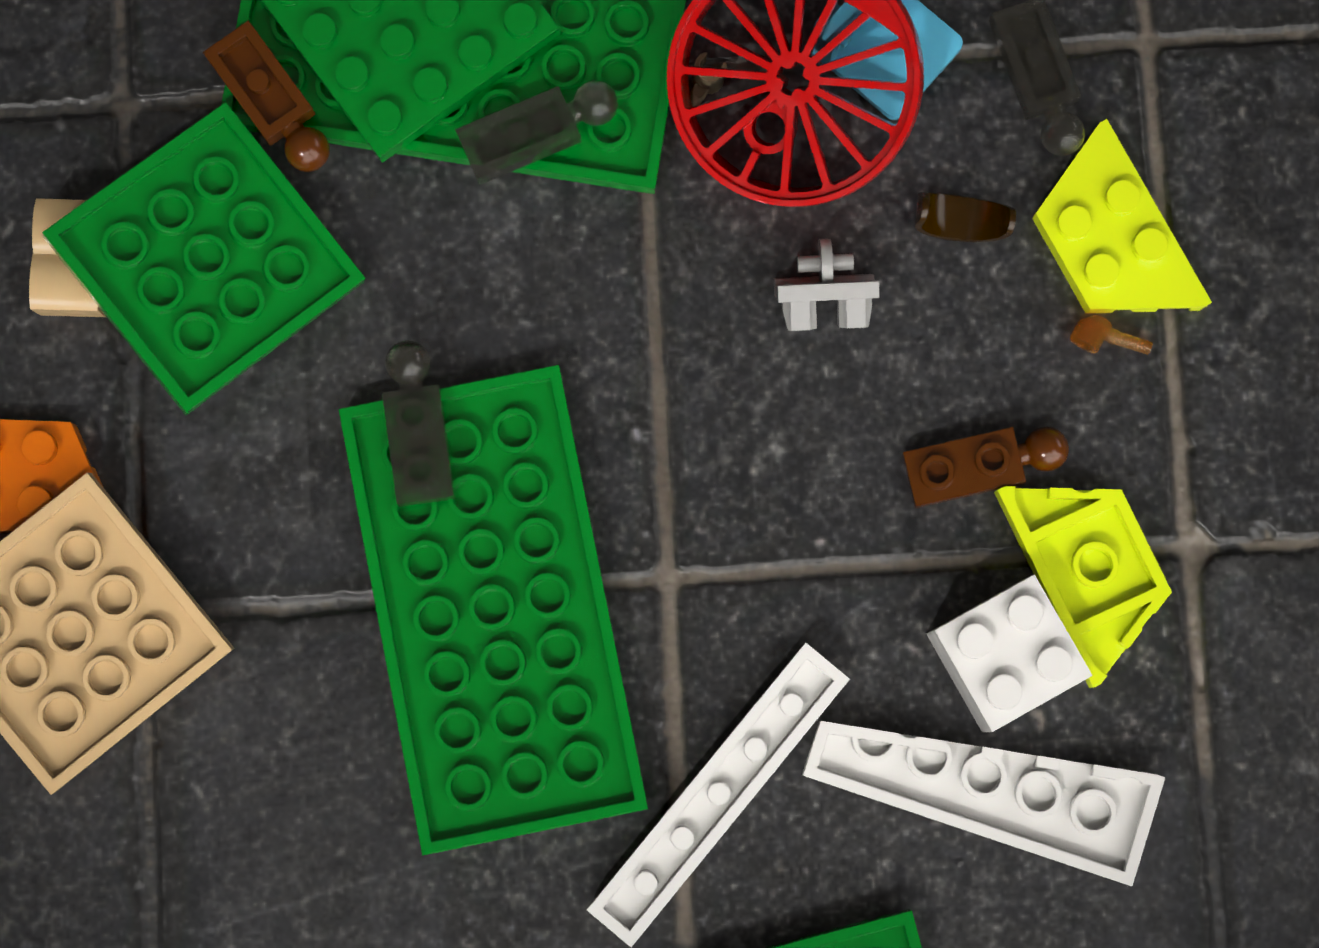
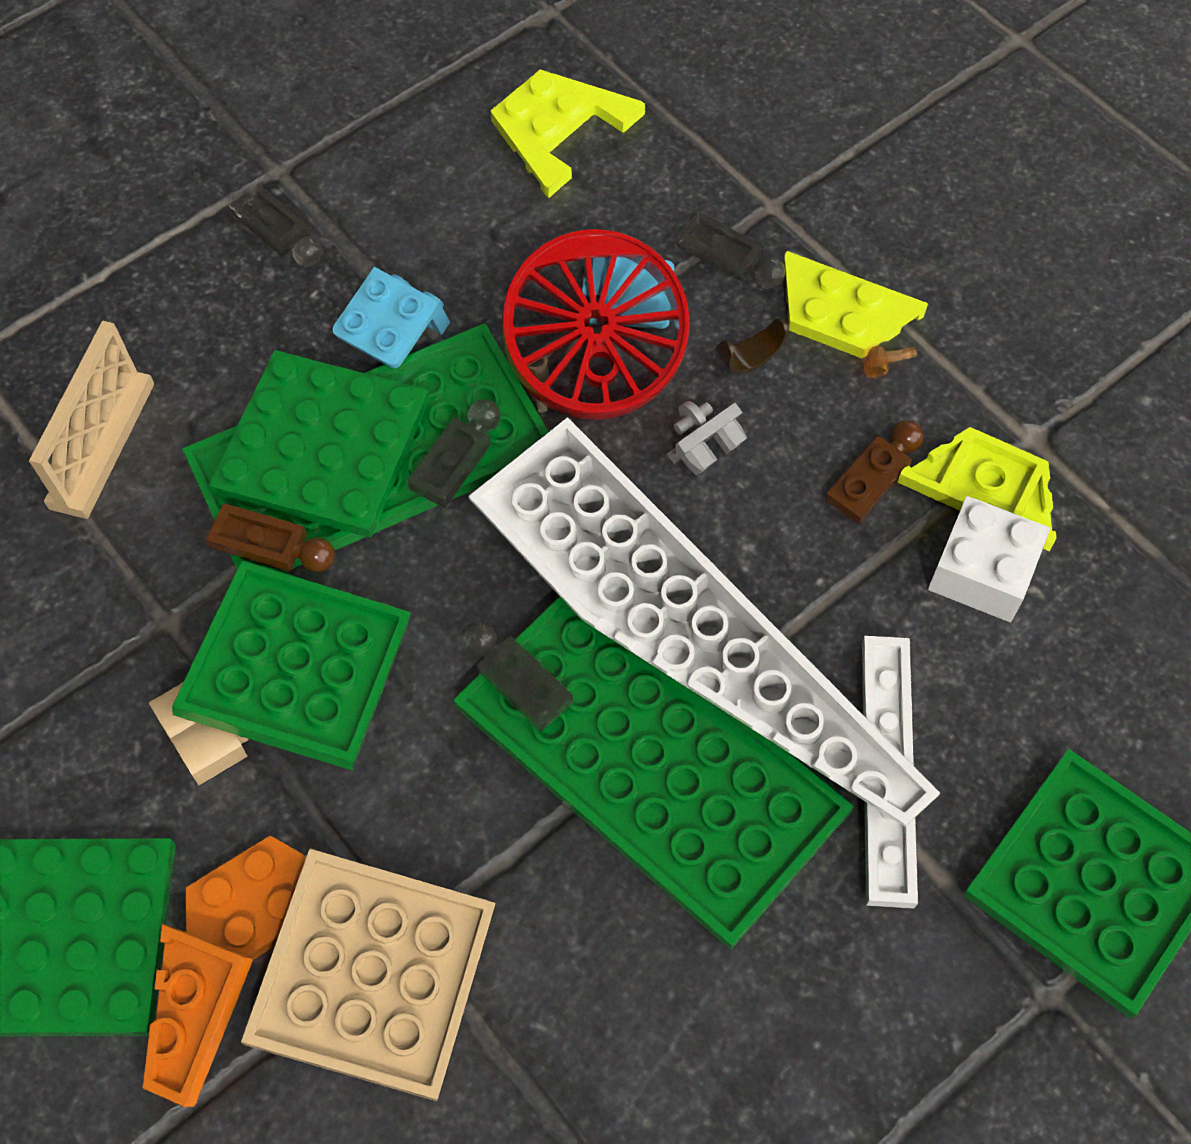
camera: 35 degrees left, 20 degrees down
(622, 462) = (671, 606): none -> white wedge
(1036, 803) = (1079, 636): white wing -> none

